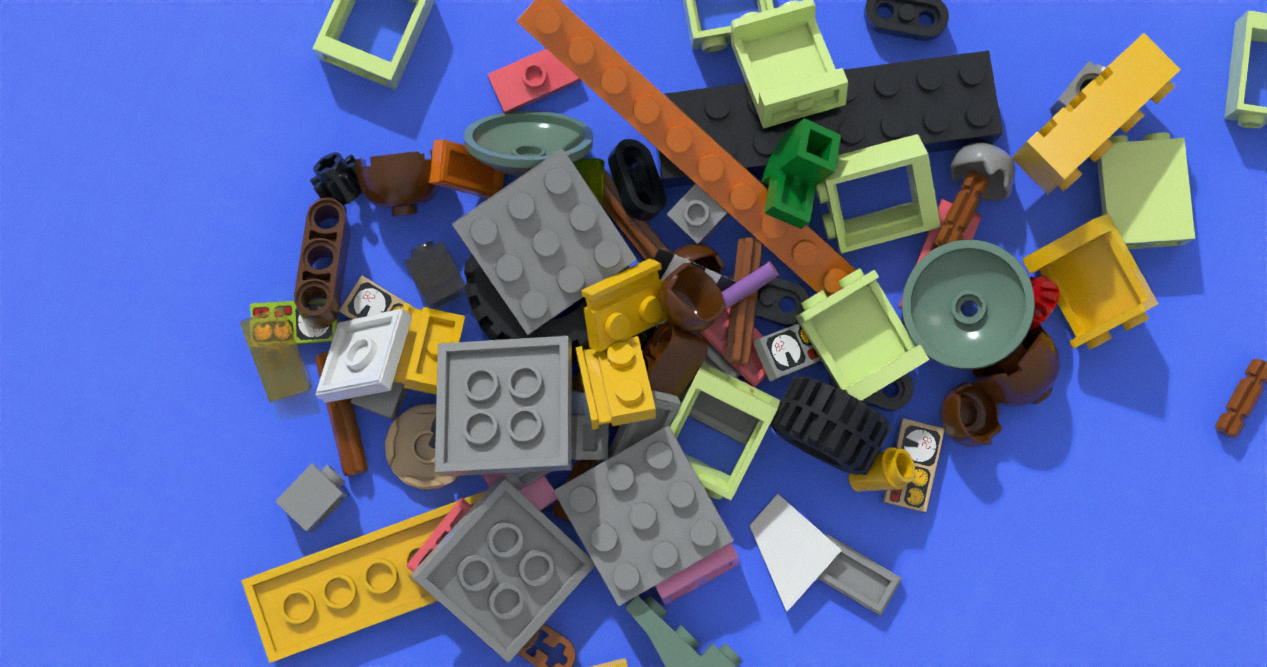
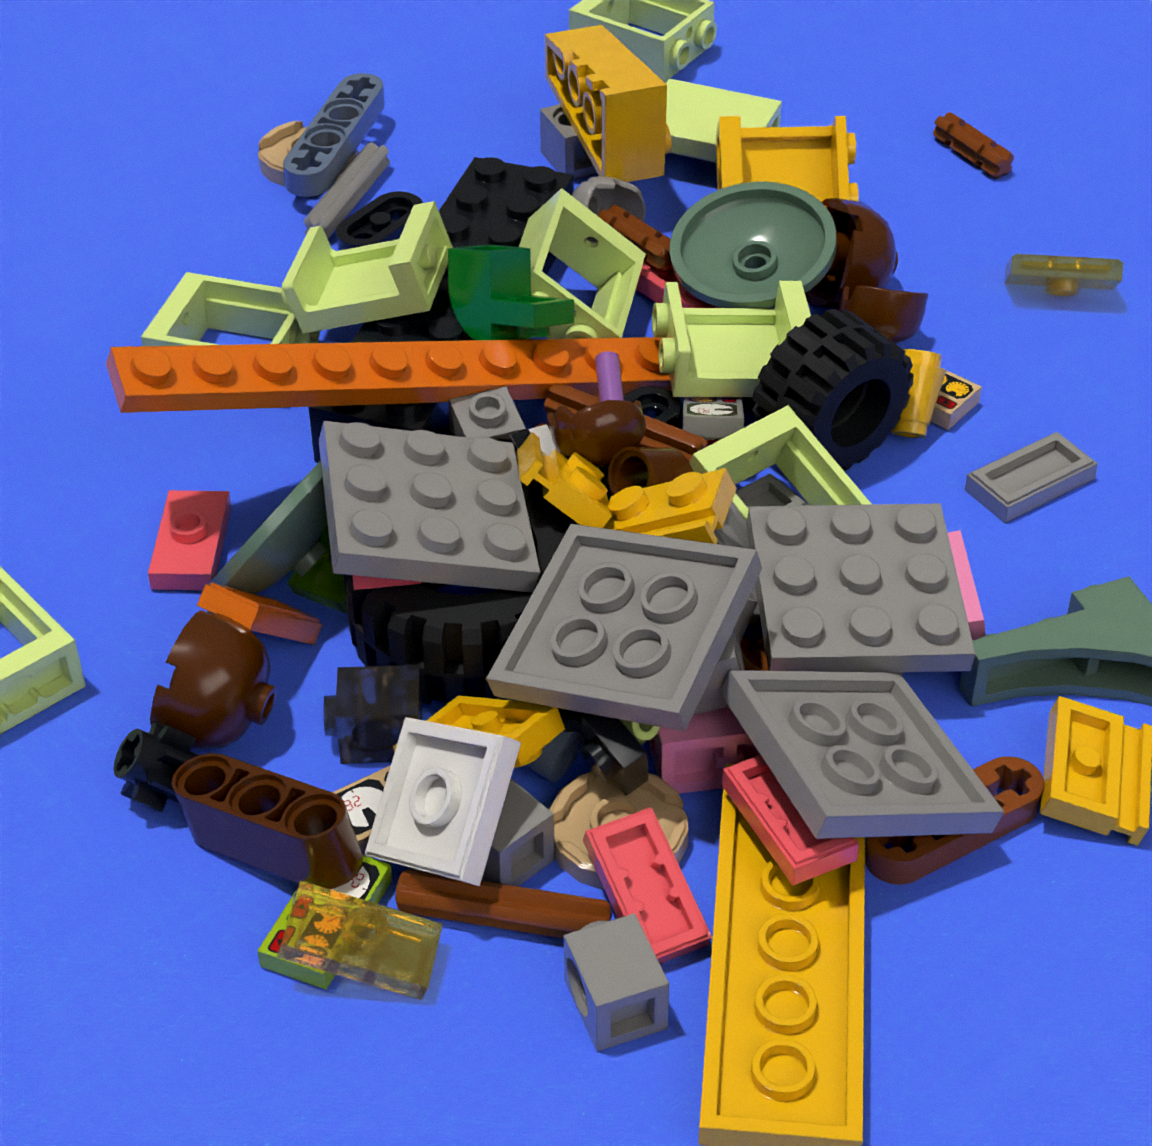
camera: 60 degrees left, 40 degrees down
(381, 485) = (647, 881): none -> coral plate
(791, 549) = (986, 508): white sticker -> none
(1089, 525) = (1063, 273): none -> clear yellow plate

